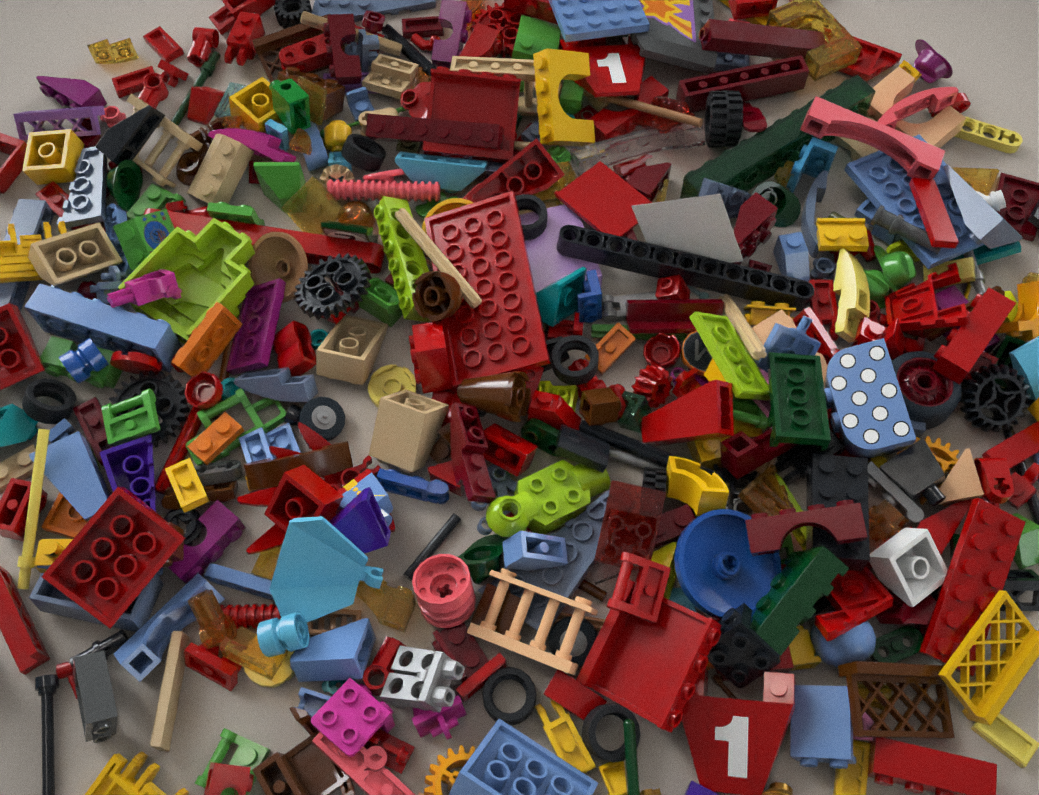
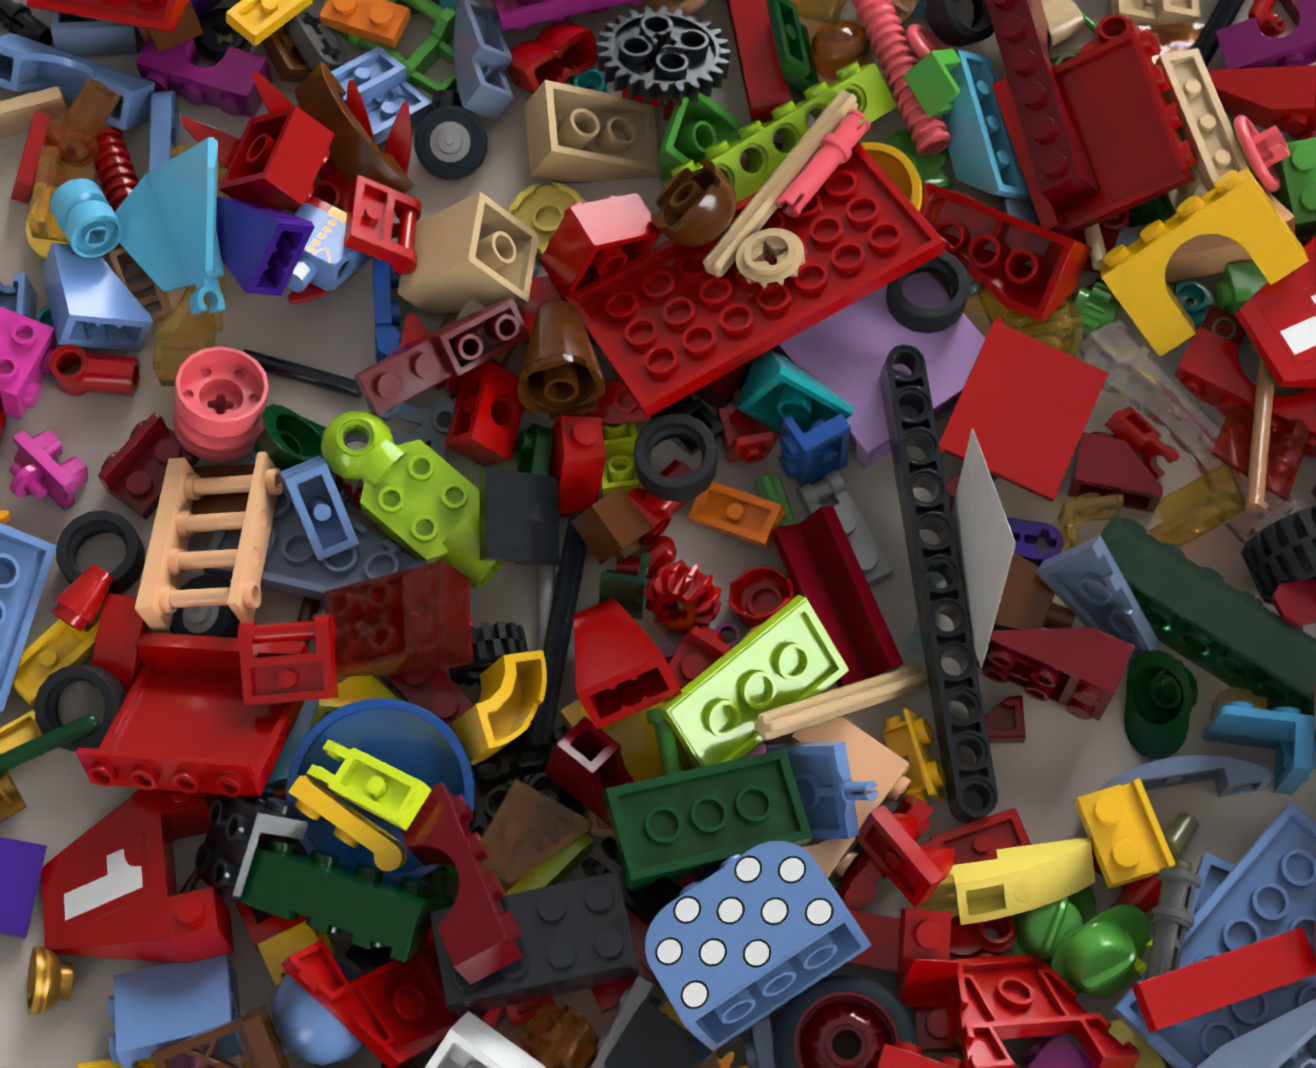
camera: 70 degrees right, 5 degrees up
(368, 462) = (371, 222): none -> red plate
(411, 171) = (933, 82): none -> bright green panel
(424, 681) = (77, 422): light grey hips -> none
(432, 226) = (833, 150): none -> coral pin
(477, 266) = (781, 244): none -> tan gear
(478, 679) = (103, 498): red tile -> none
(515, 50) = (1262, 151): none -> coral piece
(543, 708) = (83, 598): none -> red cone
(672, 287) = (892, 581): red bracket -> none
(681, 150) = (1199, 507): none -> clear yellow panel
(735, 558) = (372, 785): none -> neon yellow hinge
(748, 582) = (350, 824): none -> yellow plate
(792, 256) = (1047, 769): medium blue slope -> none
(825, 264) = (1045, 822): sand blue plate -> none
(836, 324) = (892, 845): none -> red tile

